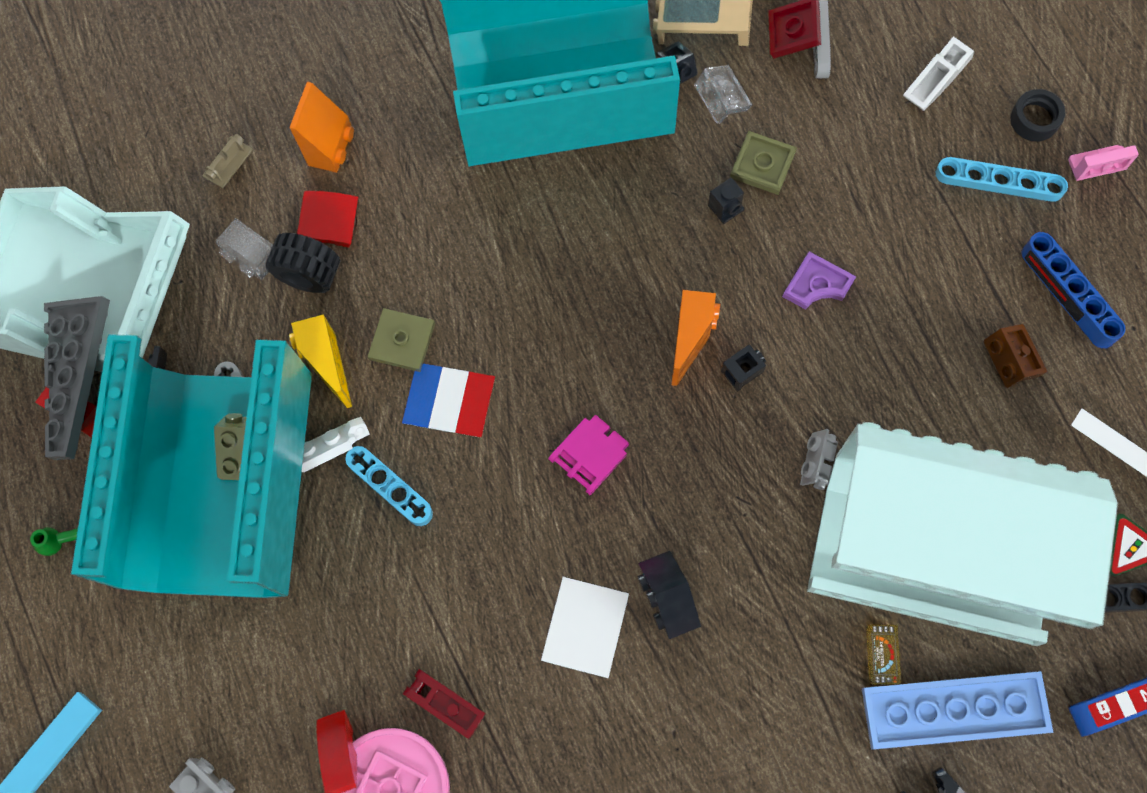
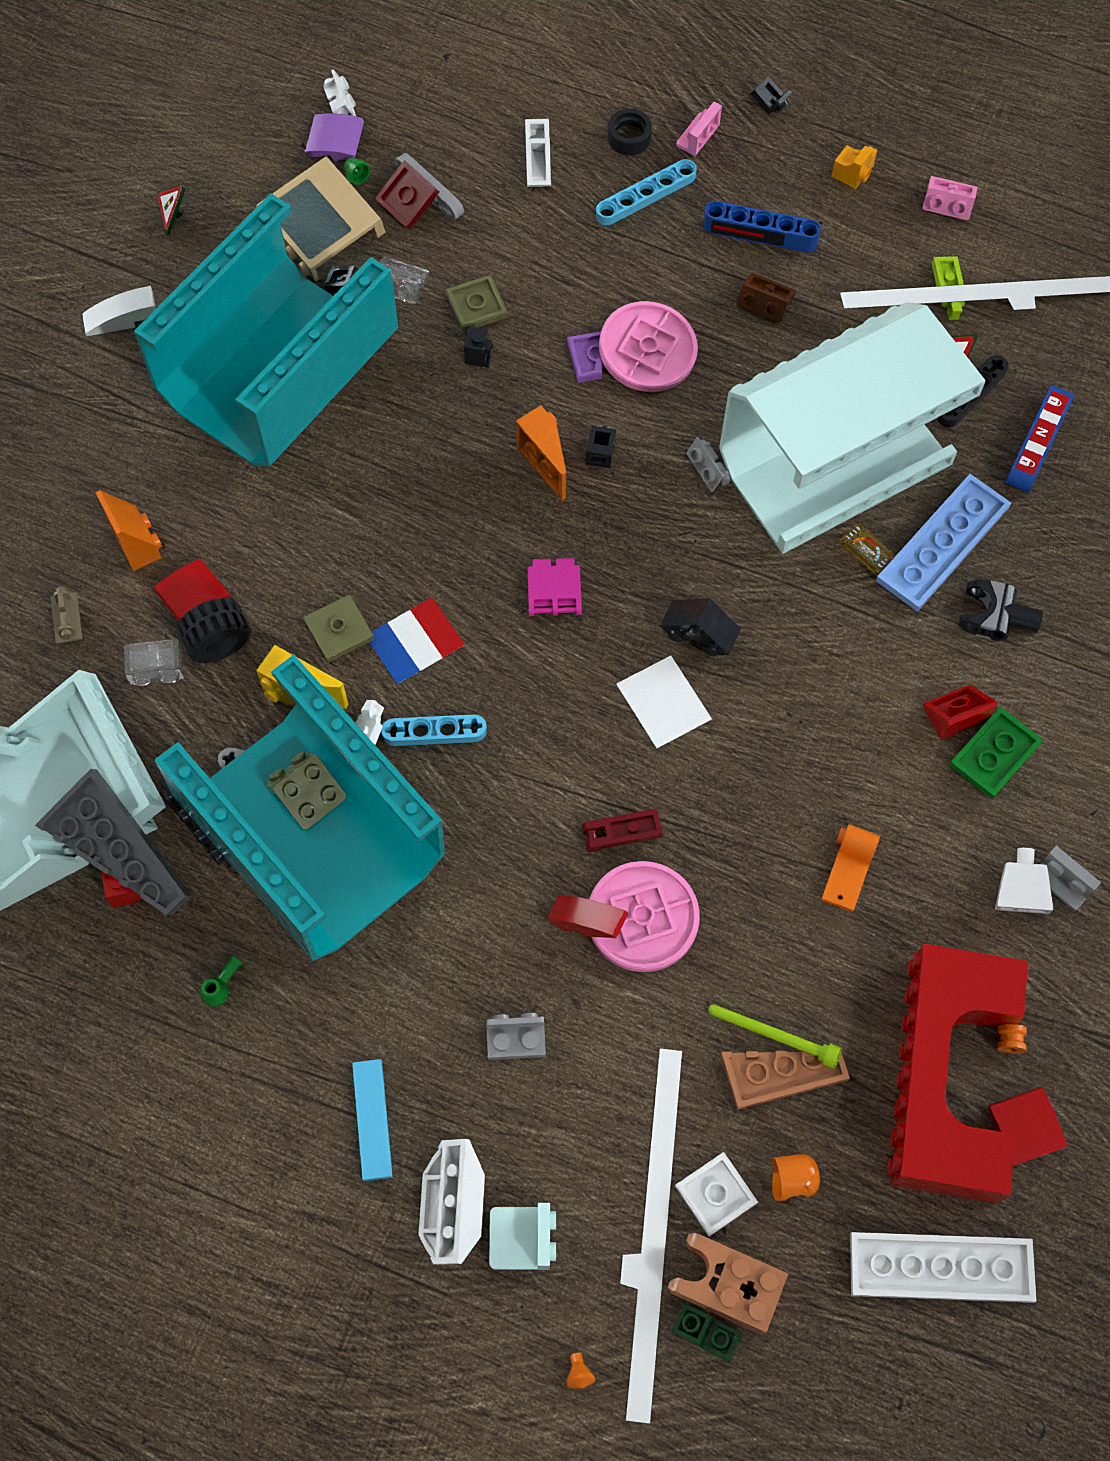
camera: 50 degrees left, 5 degrees down
(868, 315) = (648, 346): none -> bright pink plate

